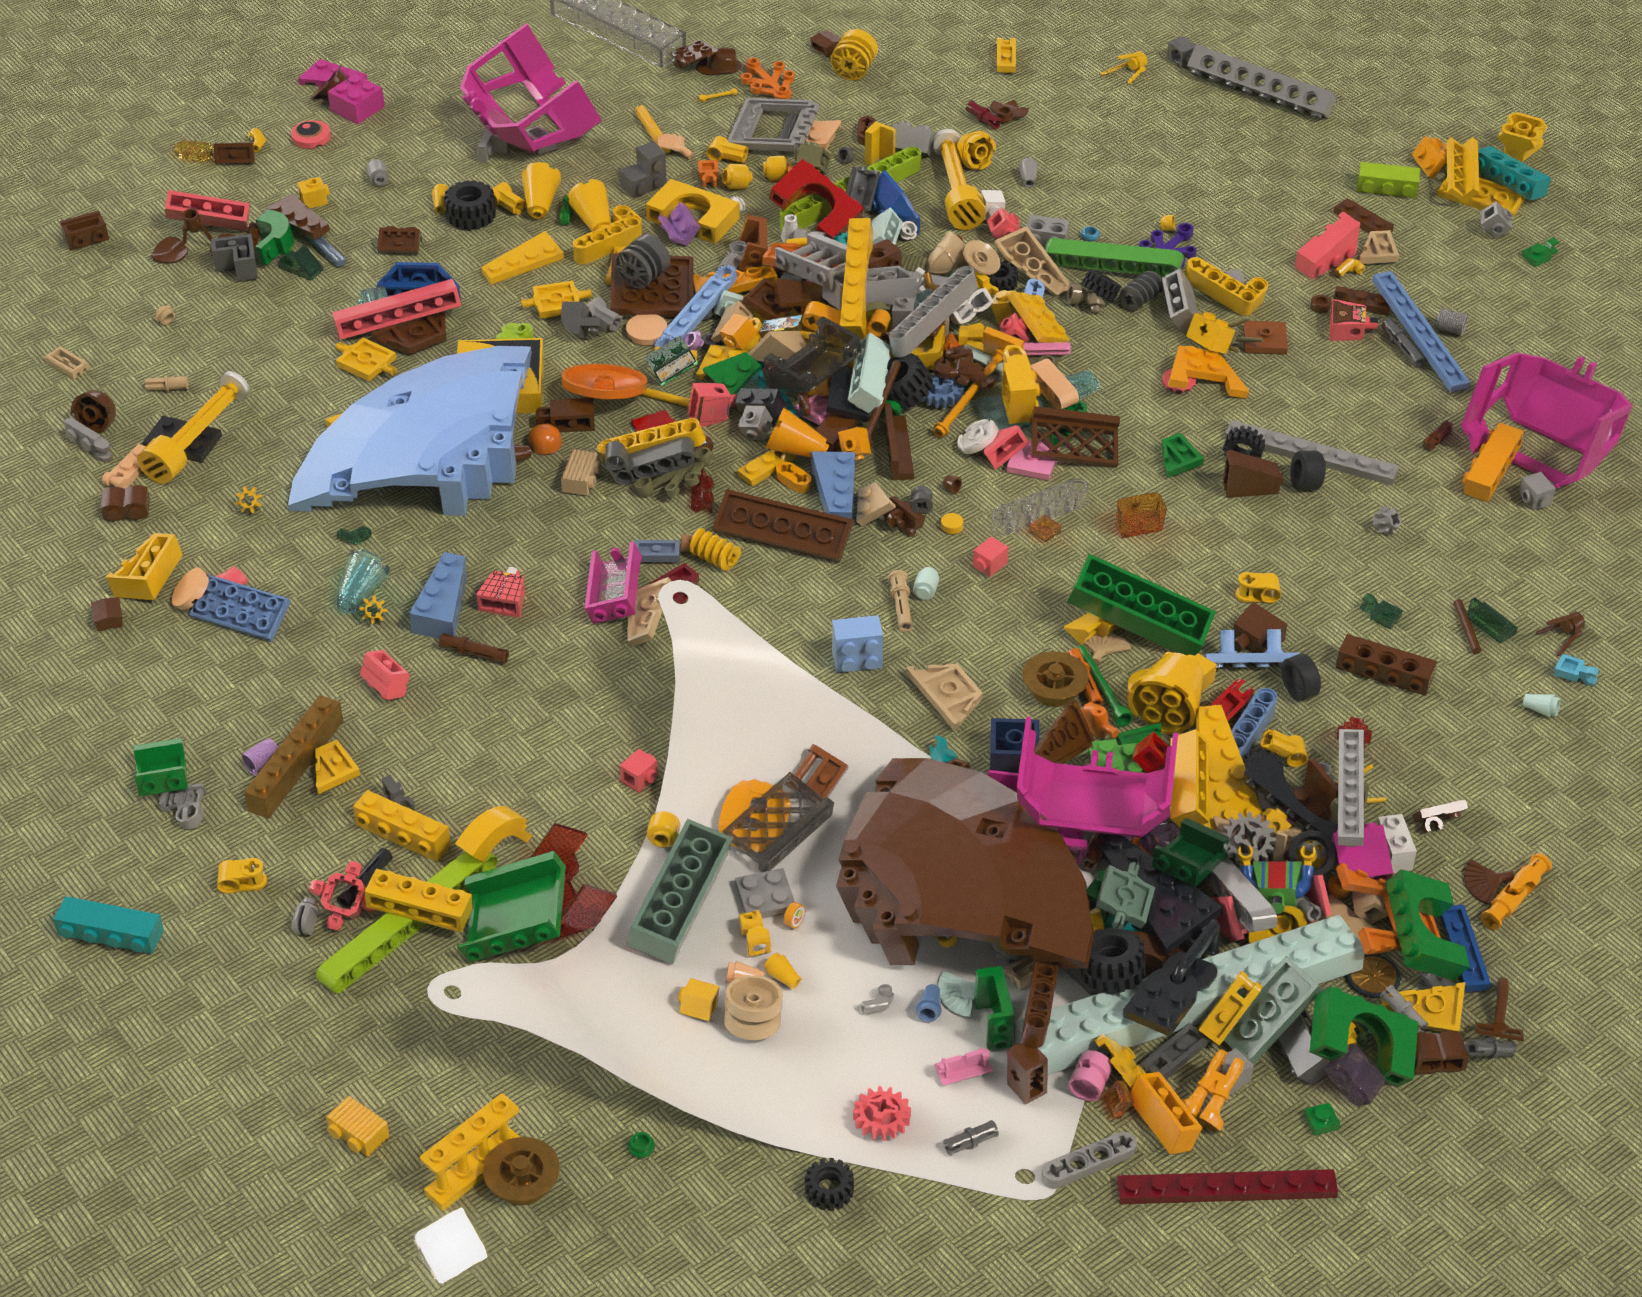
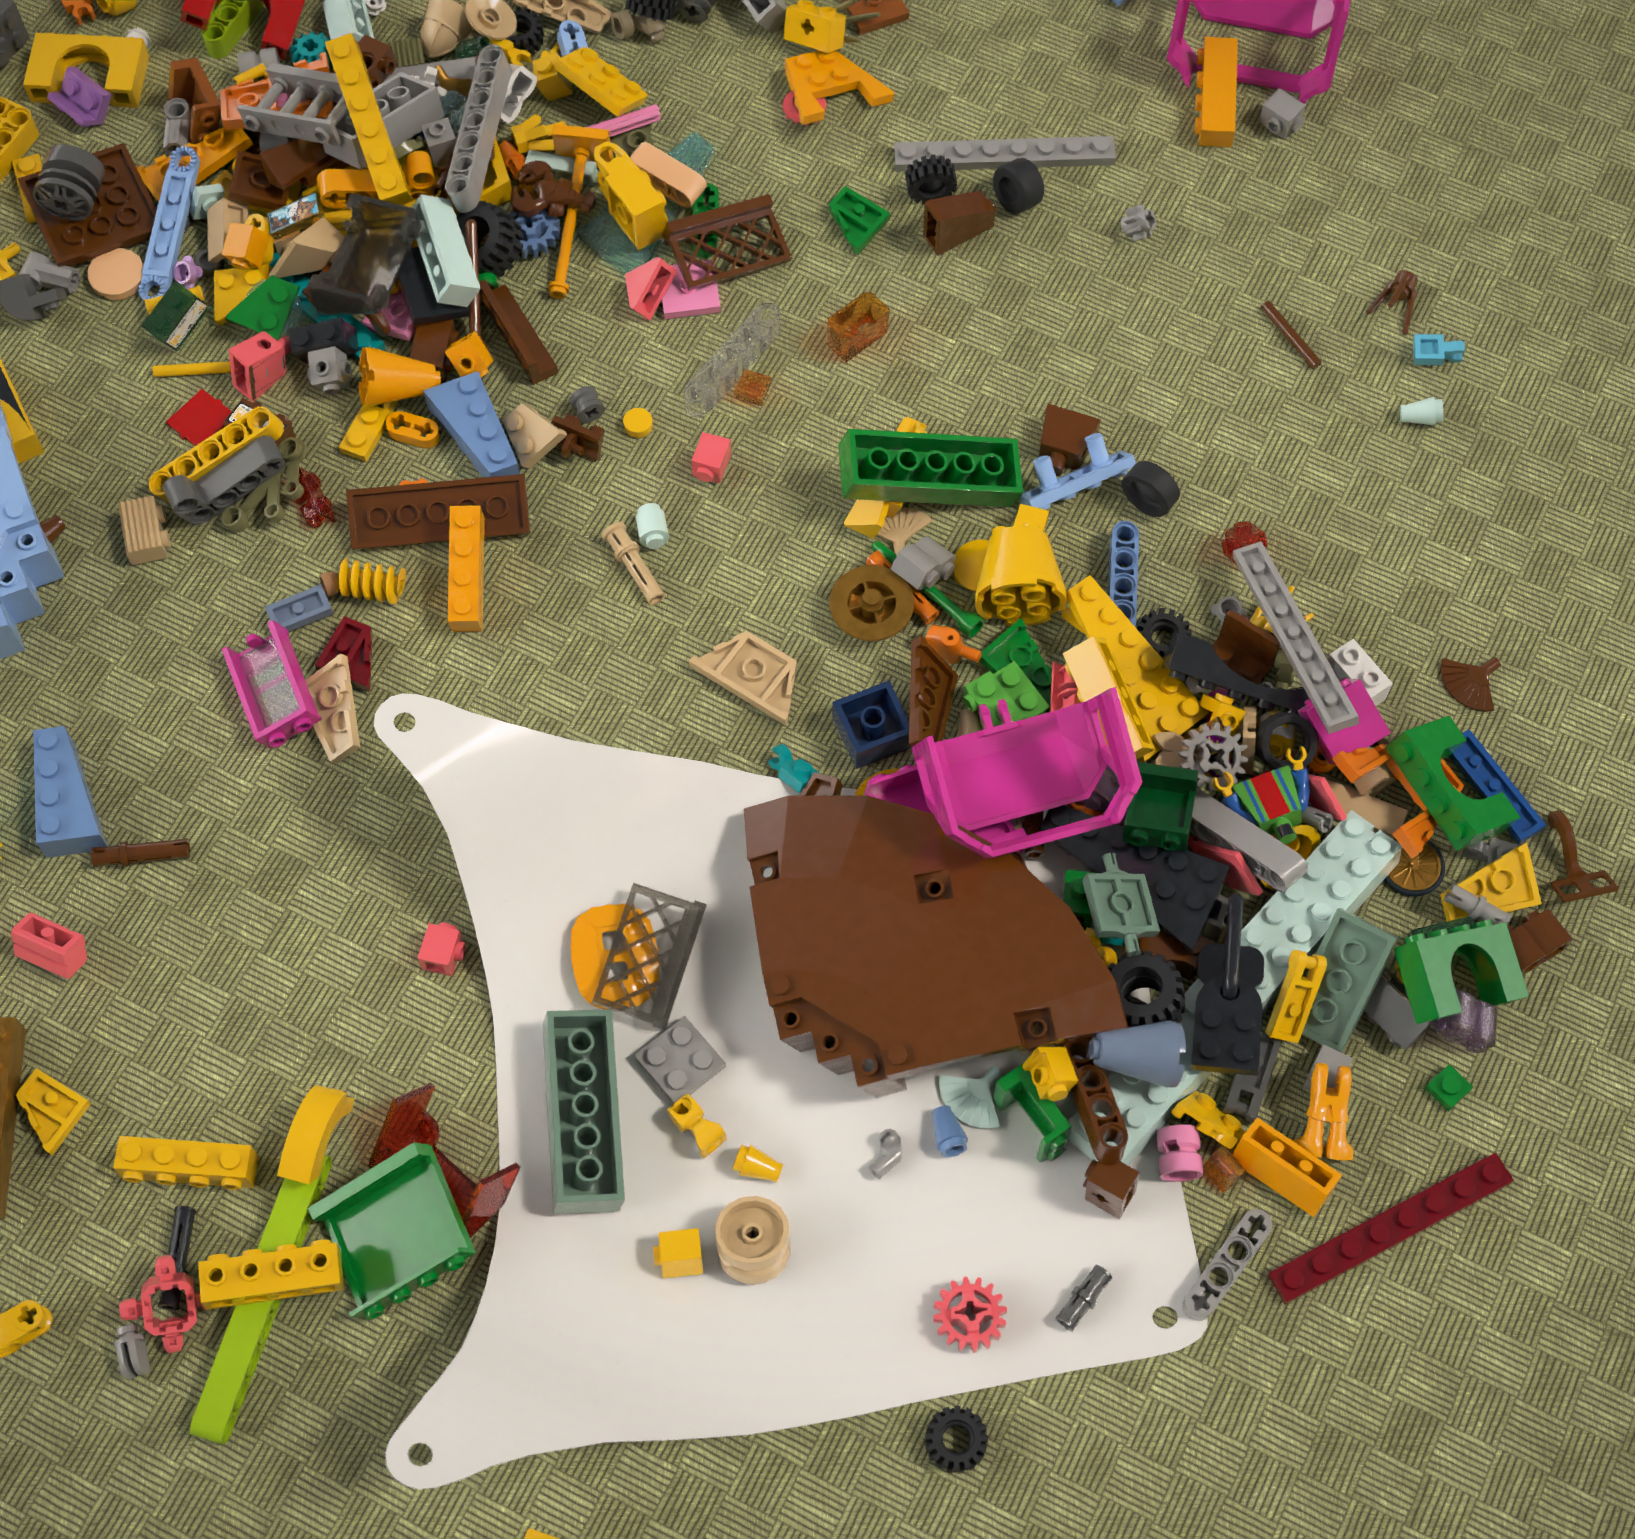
camera: 25 degrees left, 20 degrees up
(395, 792) = (151, 1115): dark grey plate -> none
(502, 593) = (136, 754): coral torso -> none
(544, 439) = (70, 495): orange hair -> none
(568, 414) = (82, 448): reddish brown brick -> none
(604, 381) = (106, 381): orange dish -> none
(641, 1145) = (710, 1488): green plate -> none
(663, 829) = (516, 1026): yellow head -> none
(739, 969) = (713, 1191): light nougat cone -> none
(781, 561) = (466, 569): none -> light orange brick
(789, 227) = (226, 56): white cone -> none
(794, 915) = (731, 1078): light orange tile -> none
(825, 776) = (675, 865): dark orange plate -> none
(857, 643) = (618, 655): light blue brick -> none
(952, 484) = (610, 365): reddish brown hinge -> none
(963, 1067) = (1028, 1202): bright pink hinge -> none
(977, 436) = (610, 285): white tile -> none
(1015, 327) = (579, 108): coral brick -> none
(1016, 974) = (1051, 1072): none -> yellow brick
(1086, 982) = (1142, 1052): none -> sand blue cone
(1106, 665) = (924, 563): none -> light grey brick
(1150, 753) = (1040, 674): red brick -> none
(1232, 699) = (1086, 555): red plate -> none
(1260, 587) = (1040, 375): yellow piece -> none
(1286, 746) = (1180, 592): yellow piece -> none
(1382, 613) = (1192, 353): clear green plate -> none
(1386, 664) = (1243, 419): reddish brown brick -> none
(1433, 814) = (1391, 605): plate -> none
(1437, 435) = (1135, 74): reddish brown axle -> none
(1490, 621) = (1314, 318): clear green panel -> none
(1491, 1048) = (1588, 915): dark grey pin -> none
(1516, 891) = (1516, 667): light orange piece -> none

